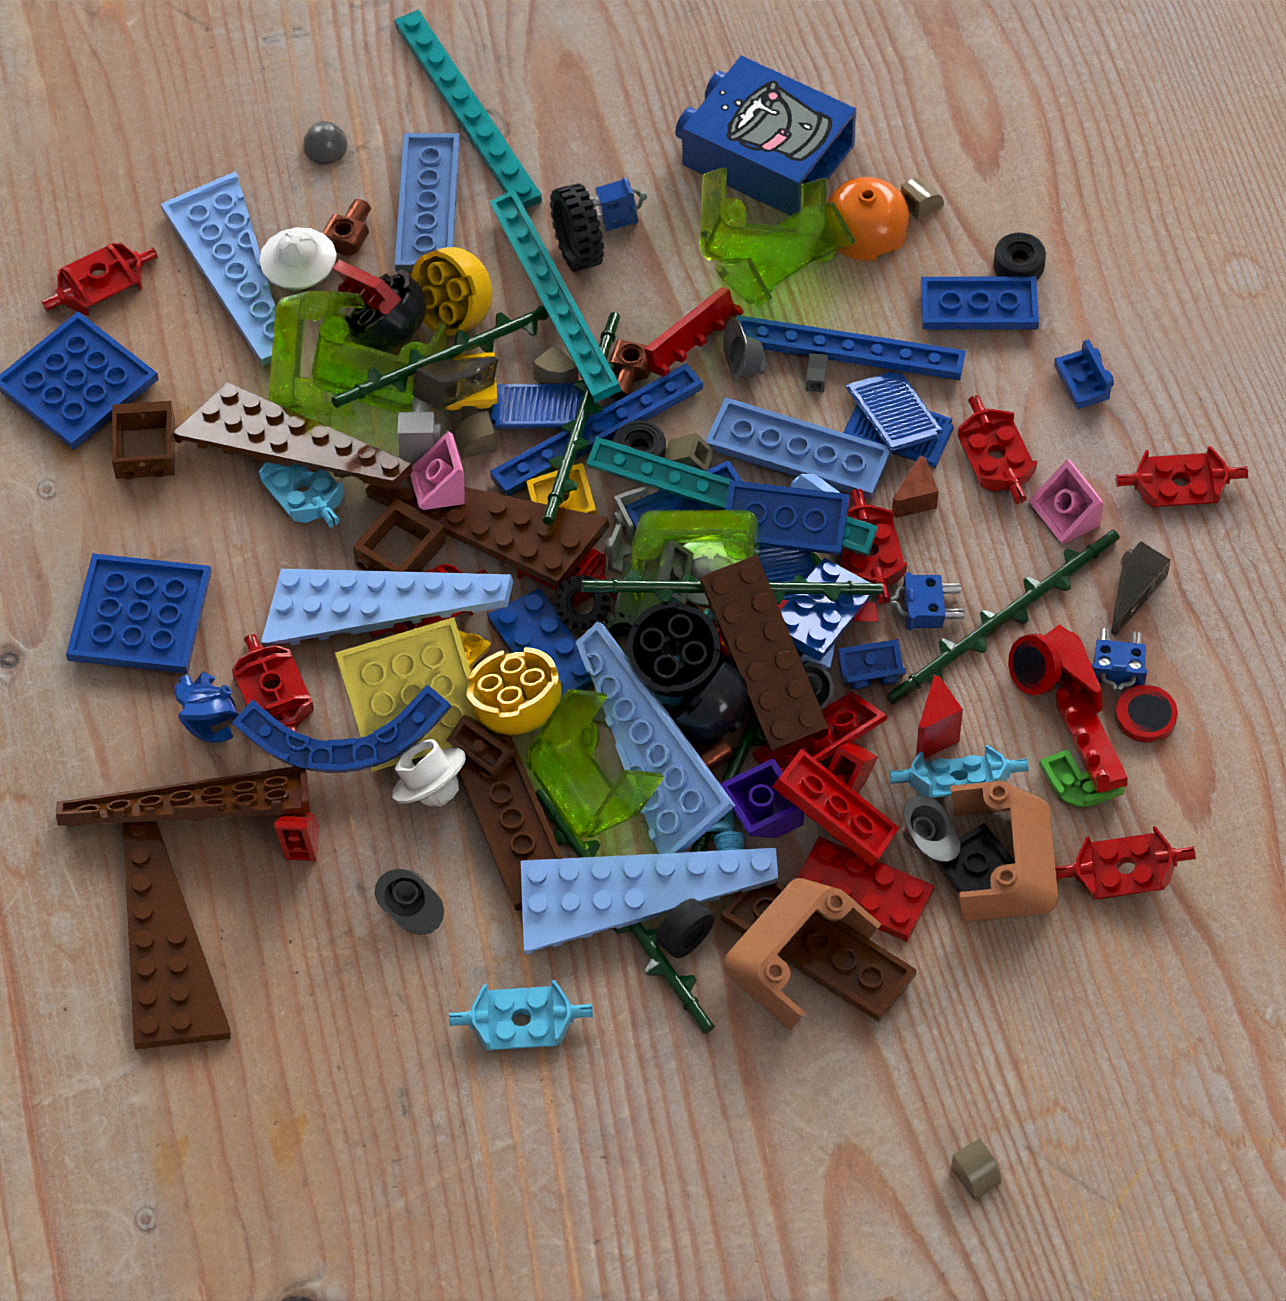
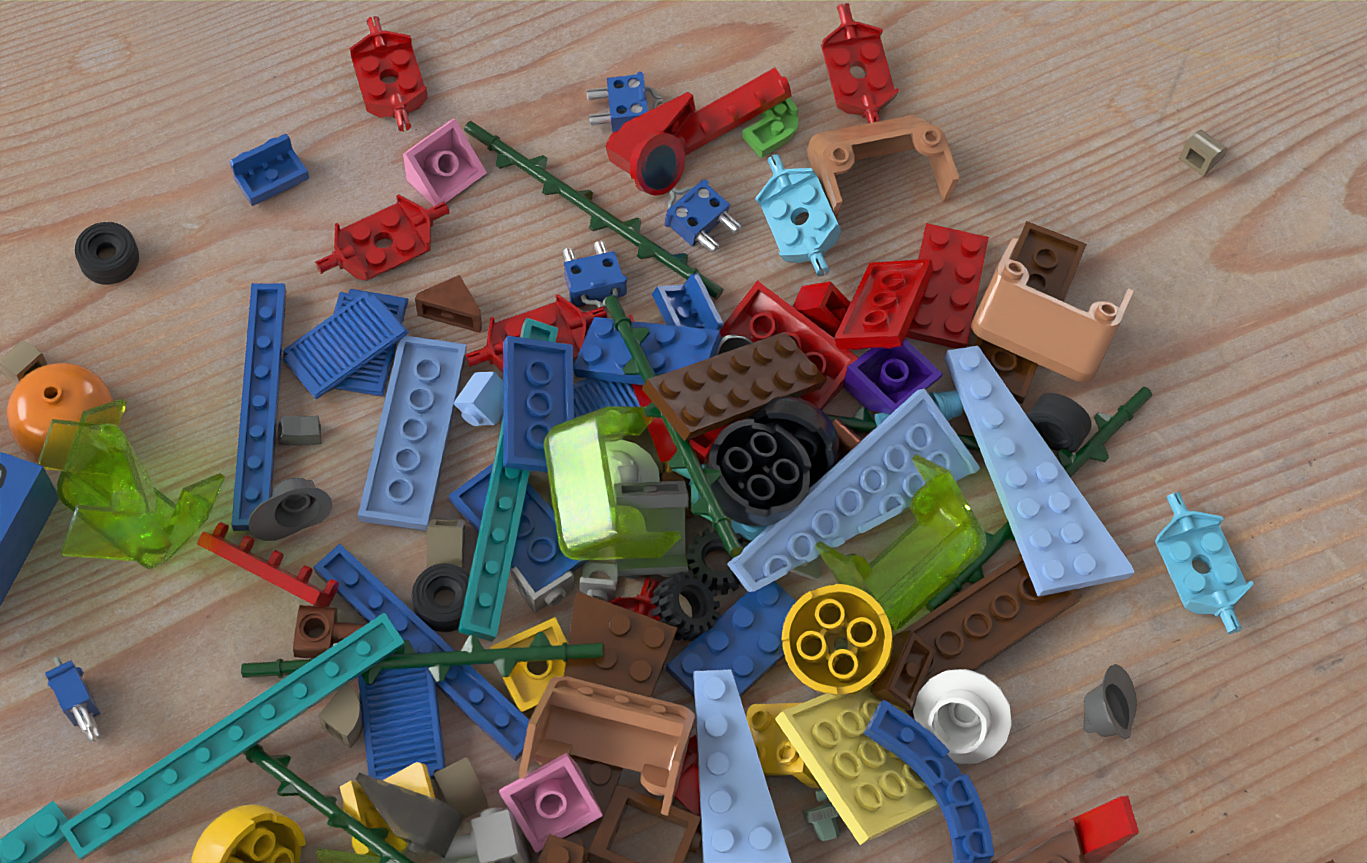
camera: 110 degrees left, 5 degrees up
(499, 502) = (610, 729): none -> nougat windscreen
(576, 227) = (123, 702): black tyre -> none
(929, 829) = (875, 228): dark grey piece -> none
(939, 721) = (749, 236): red slope -> none
(977, 860) = (891, 192): black plate -> none
(979, 302) = (176, 284): blue plate -> none
(981, 695) = (698, 214): none -> blue piece
(1140, 576) = (530, 98): clear smoke slope -> none
(1146, 713) = (676, 74): tile -> none

